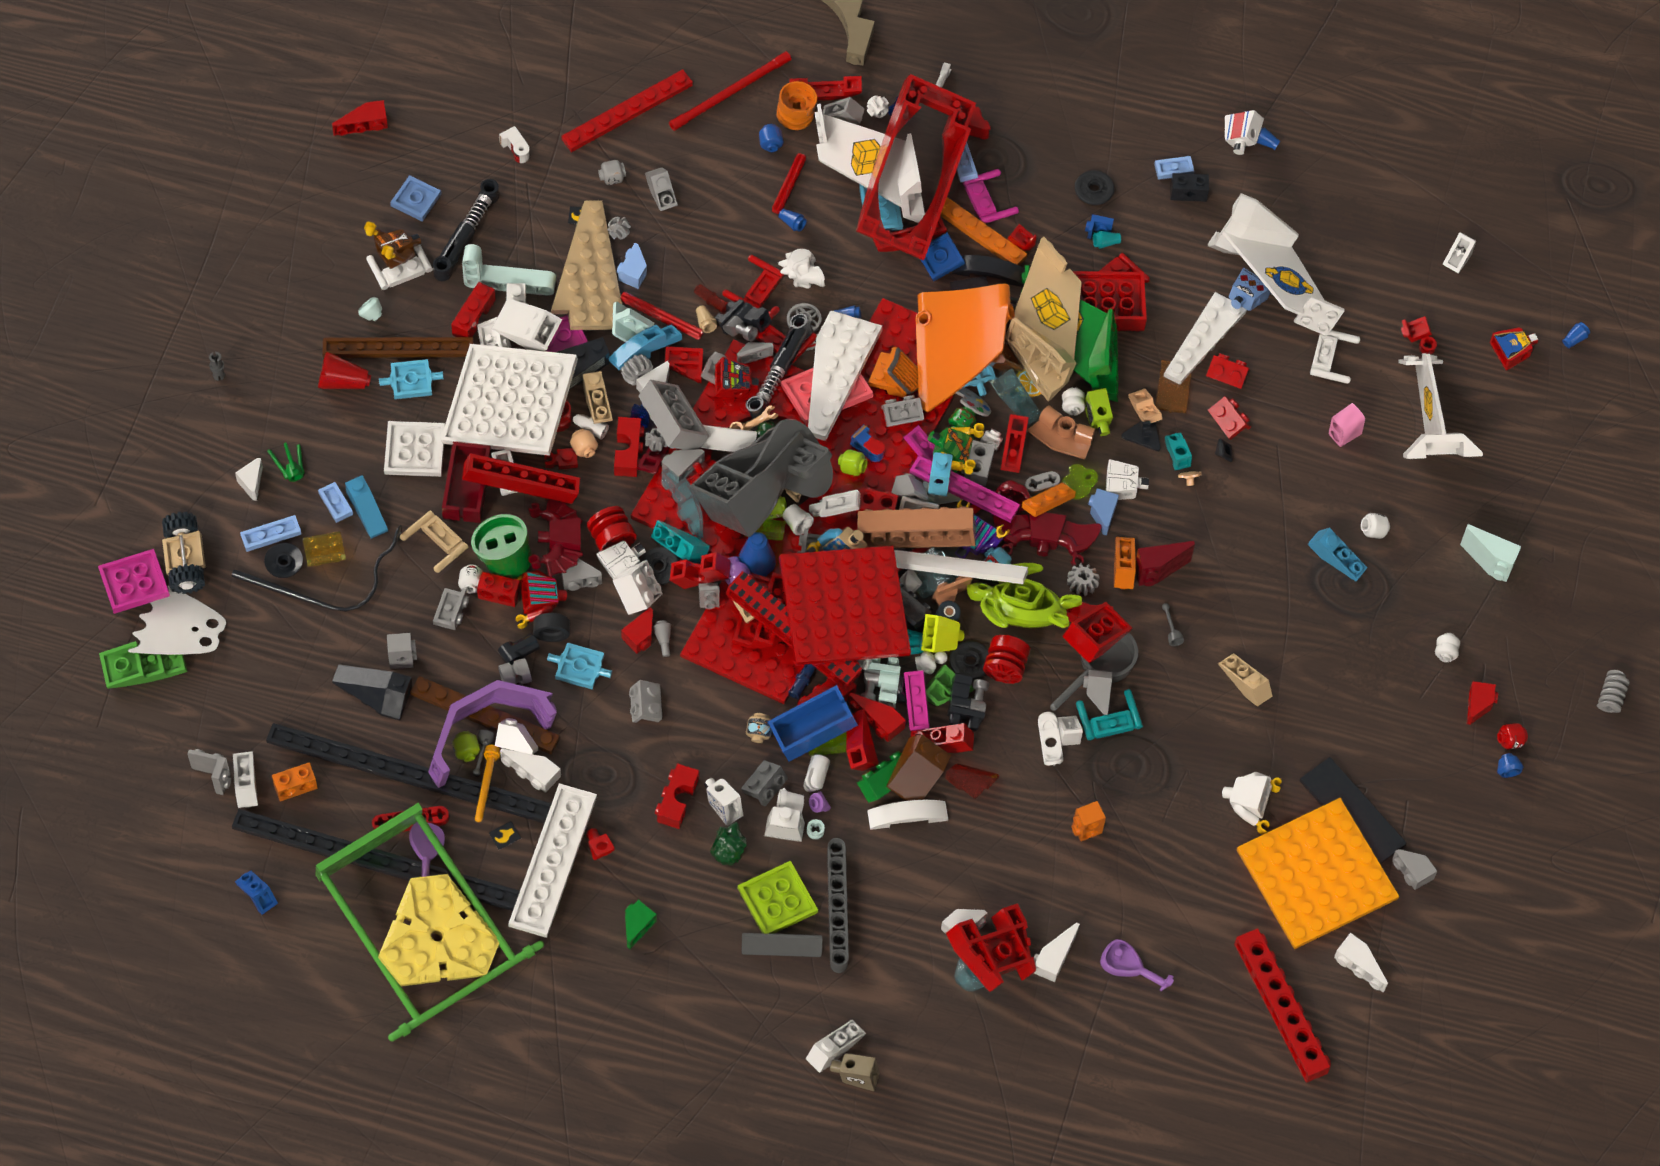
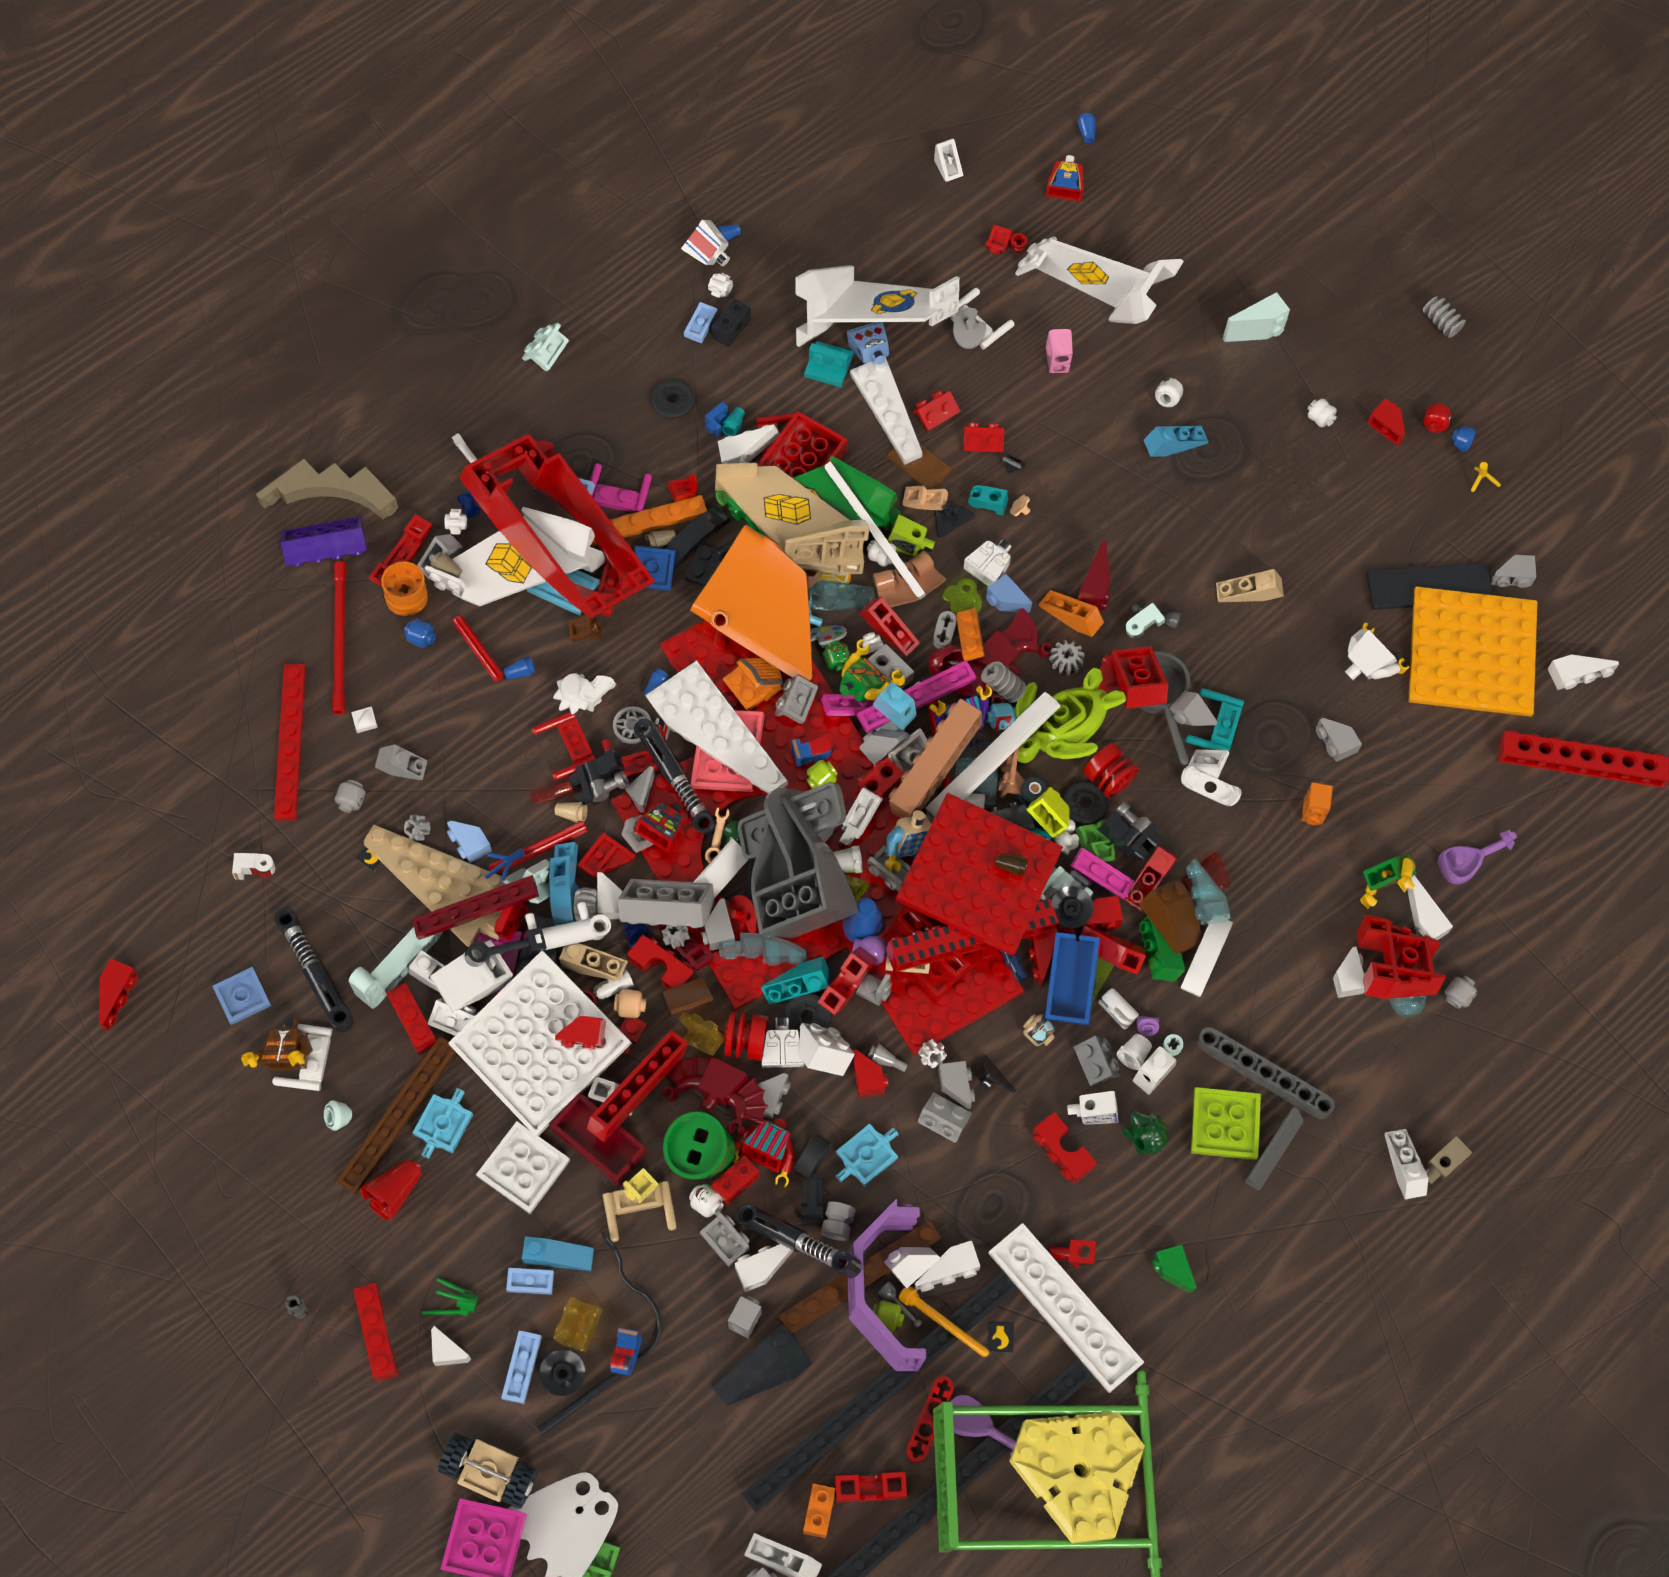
camera: 55 degrees left, 5 degrees up
(219, 439) = (375, 1332): none -> red arch
(325, 591) = (626, 1351): none -> leg
(327, 799) = (870, 1488): none -> red arch
(446, 644) = (759, 1268): none -> white slope
(449, 527) = (640, 1186): none -> light yellow bracket
(477, 647) = (798, 1240): none -> black piece
(533, 415) = (583, 1031): none -> red slope
(580, 296) = (475, 907): none -> dark red tile
(587, 352) = (543, 939): none -> piece
(591, 325) = (510, 921): none -> red wing
(591, 504) = (702, 1034): none -> clear yellow bracket
(612, 476) = (687, 997): none -> reddish brown slope
(626, 298) = (508, 860): none -> blue plant
(678, 146) = (364, 719): none -> white tile
(678, 693) = (955, 1083): none -> light grey slope
(691, 661) = (937, 1053): none -> white gear
(702, 716) = (992, 1075): none -> black piece
(797, 33) = (323, 541): none -> dark purple slope
(831, 117) = (445, 564): none -> dark tan cone
(857, 241) = (584, 628): none -> reddish brown bracket
(865, 620) = (1012, 863): none -> dark brown cone
(870, 682) = (1079, 900): none -> black dish
(948, 784) = (1210, 900): none -> clear light blue slope
(967, 246) = (659, 539): none -> dark tan cone
(1007, 1012) = (1460, 992): none -> light grey head
(1025, 542) = (1003, 681): none -> light grey piece
(1066, 903) = (1390, 872): none -> torso
(1069, 78) = (546, 346): none -> light aqua bracket
(1076, 381) = (875, 531): none -> white tile
(1087, 257) = (746, 445): none -> white slope
(1155, 615) = (1143, 620): none -> light aqua leg
(1161, 812) = (1339, 739): none -> light grey slope
(1209, 274) = (828, 363): none -> teal bracket
(1216, 161) = (720, 285): none -> white gear
(1313, 354) = (970, 333): none -> light grey piece
(1483, 793) = (1483, 473): none -> yellow plant

